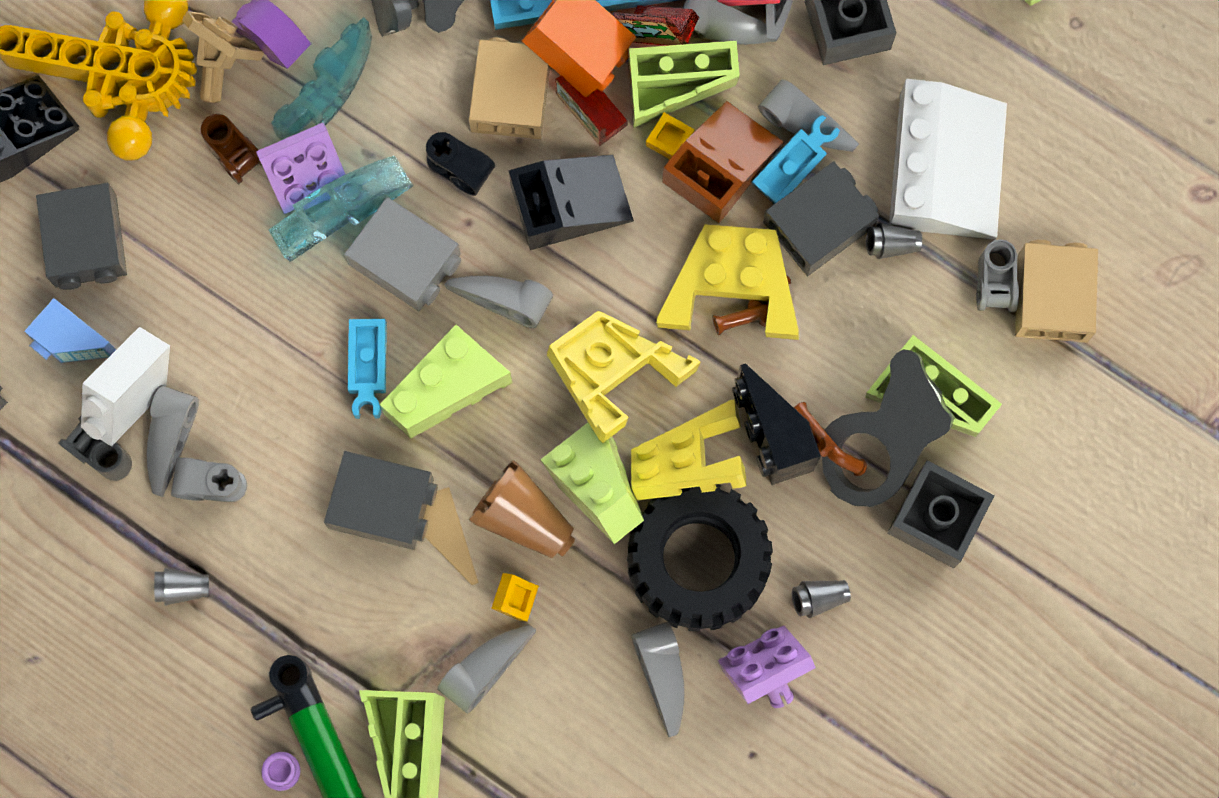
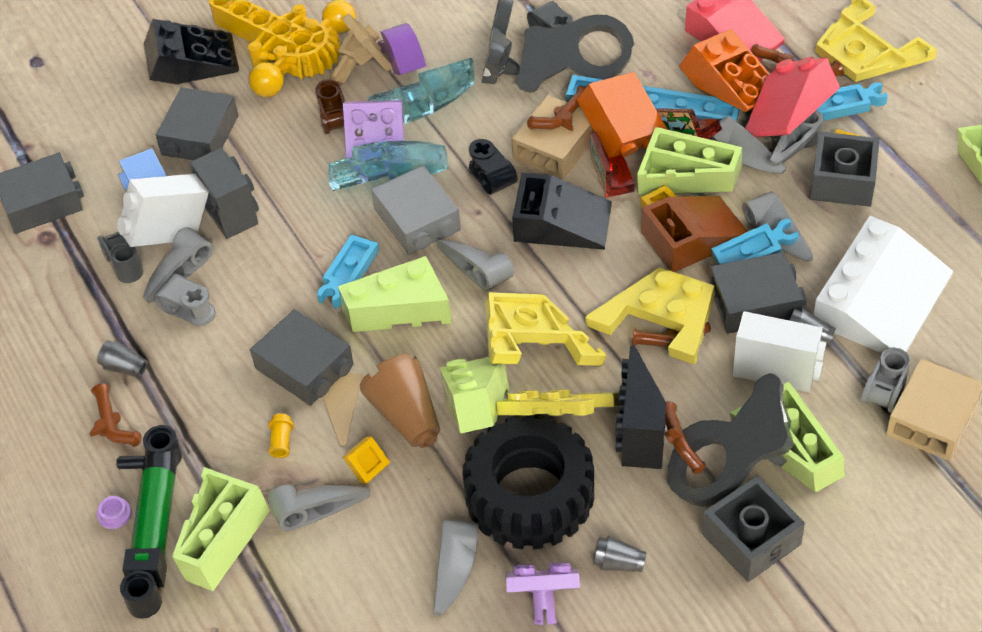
camera: 30 degrees right, 25 degrees down
(187, 328) = (229, 192): none -> dark grey brick
(209, 663) = (106, 425): none -> dark orange piece
(406, 605) = (280, 435): none -> yellow pin
(513, 64) = (562, 116): none -> dark orange piece
(881, 294) = (778, 348): none -> white brick

